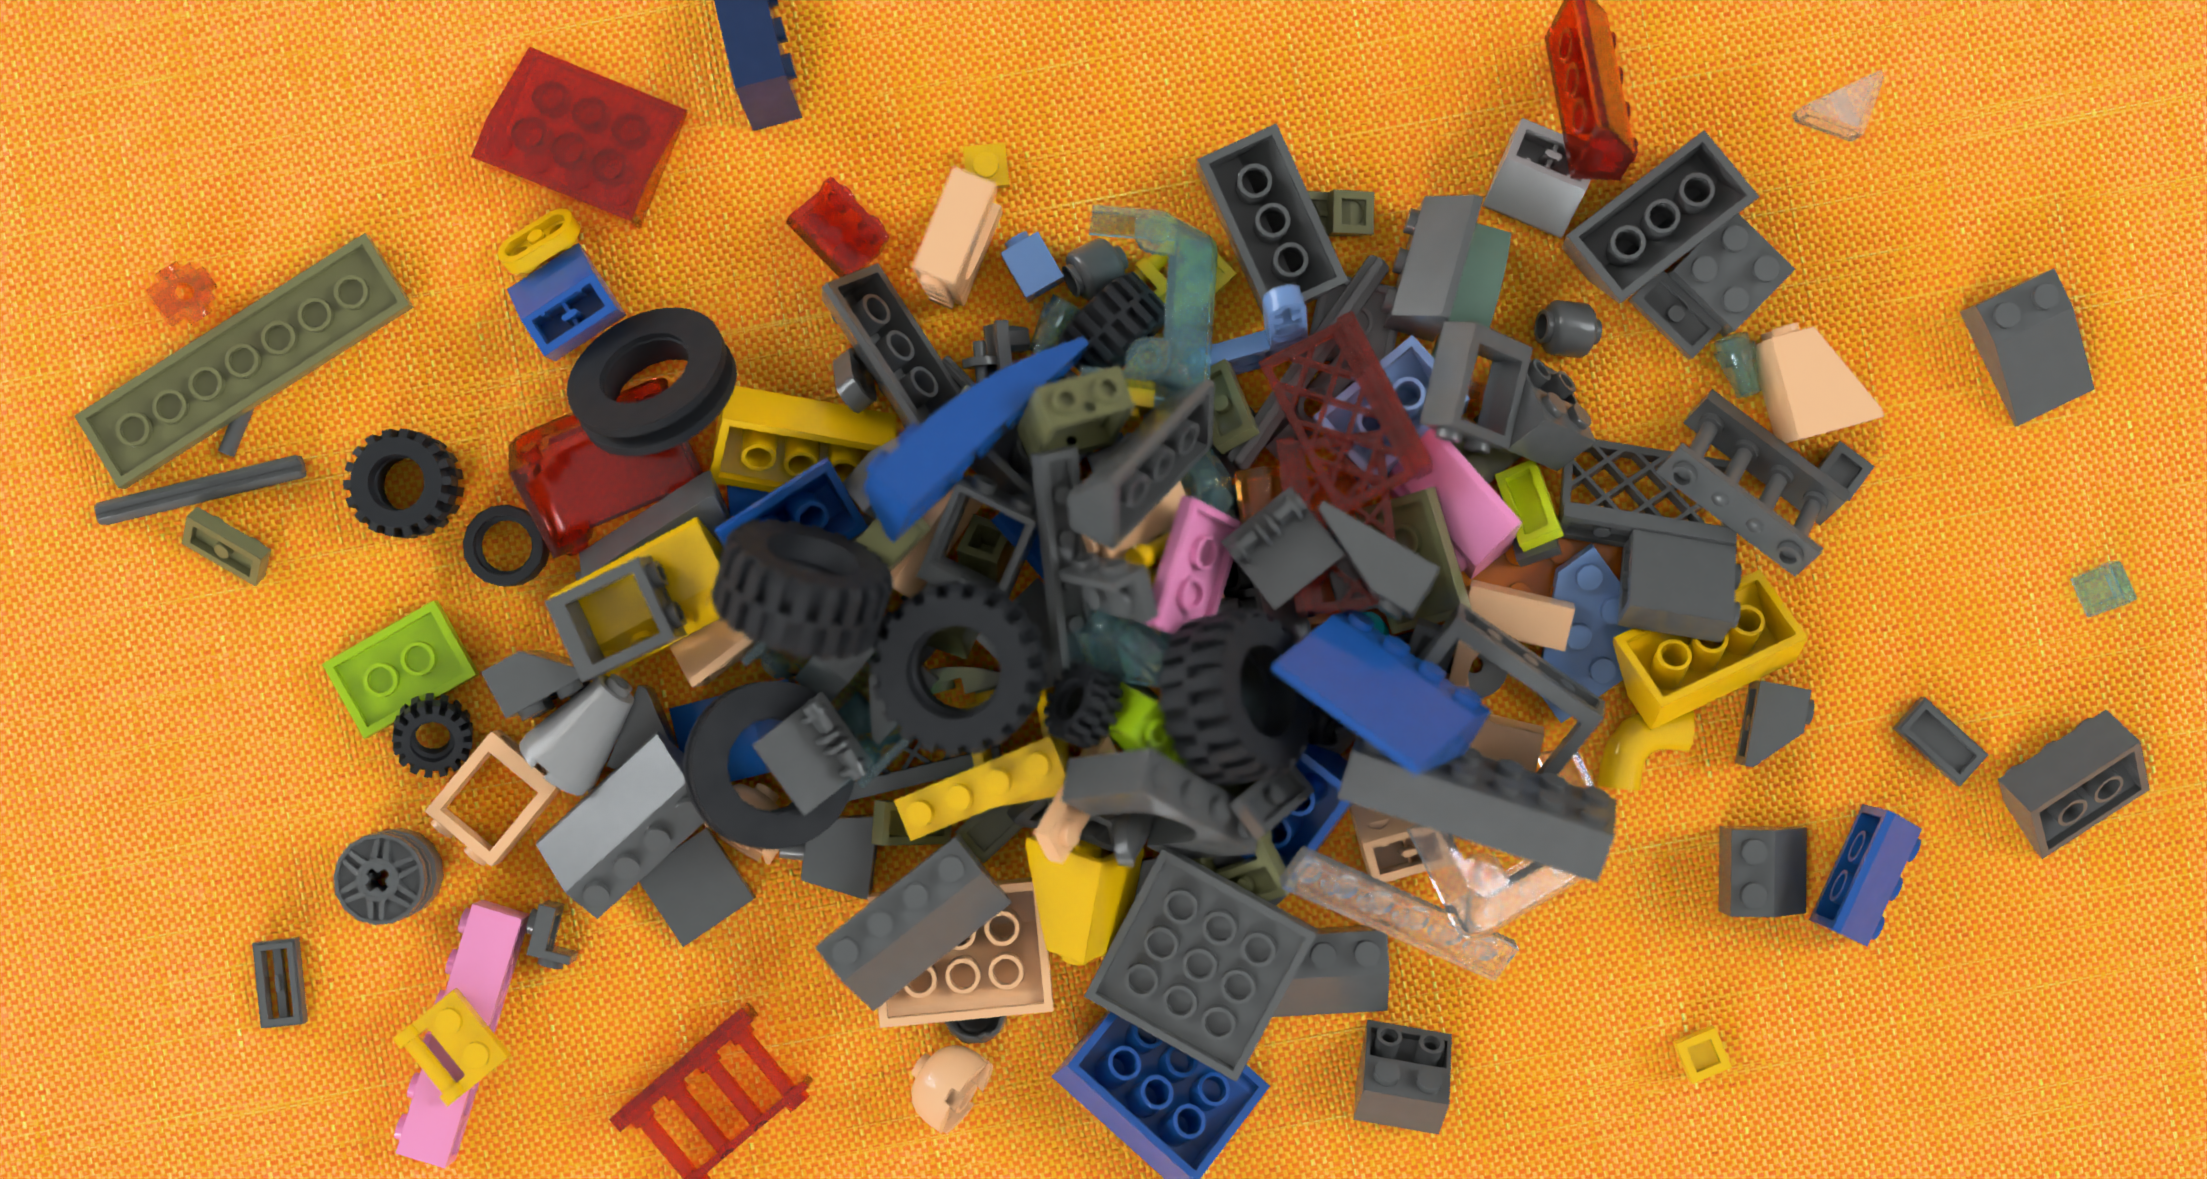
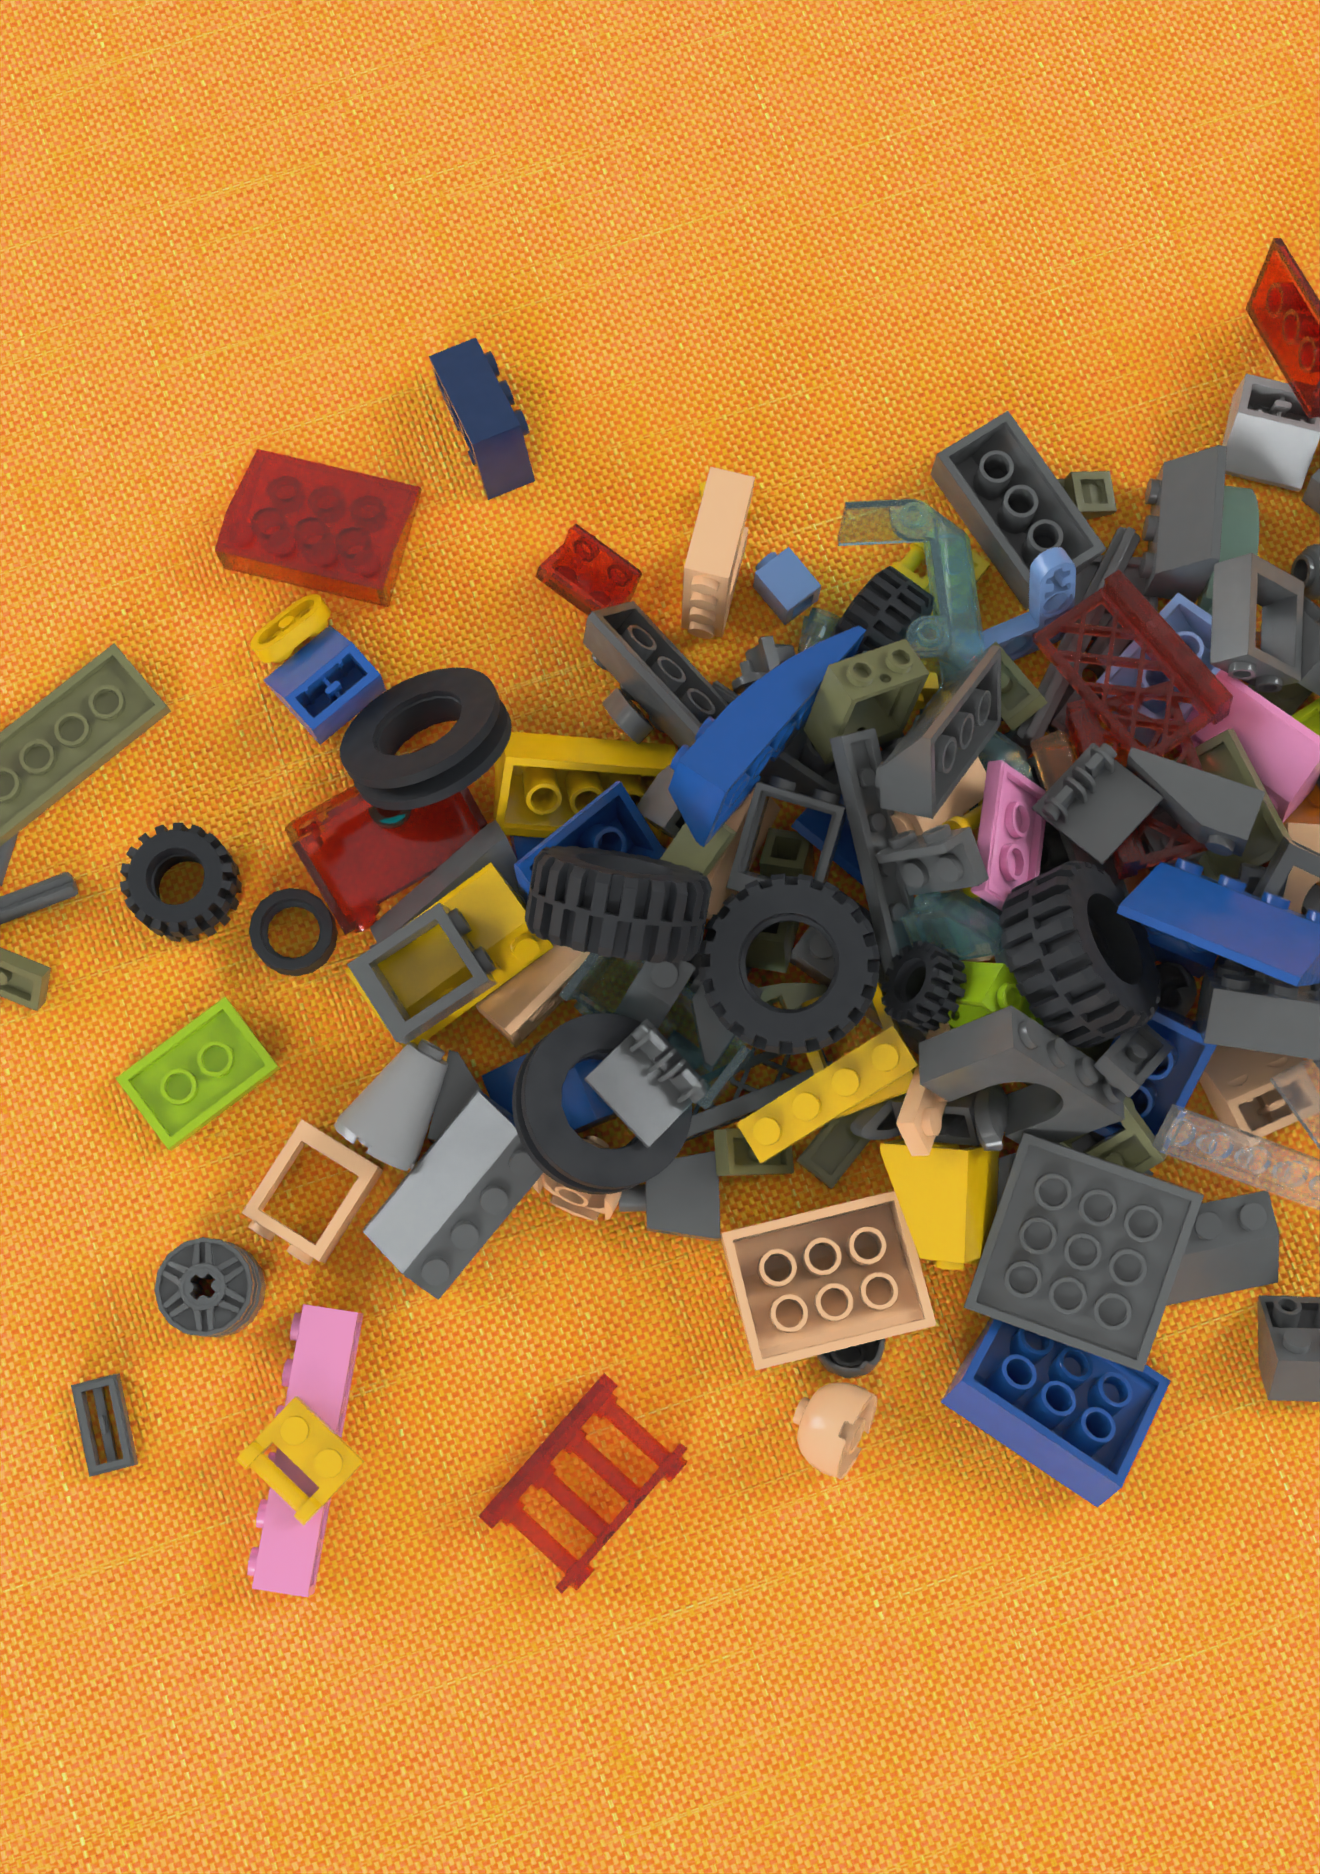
camera: 15 degrees left, 10 degrees down
(426, 758) = (247, 1160): black tyre -> none
(531, 681) = (342, 1059): dark grey slope -> none
(543, 927) = (380, 1321): dark grey bracket -> none
(696, 887) = (534, 1257): dark grey tile -> none
(913, 923) = (778, 1249): dark grey slope -> none
(1093, 267) = (845, 576): dark grey head -> none

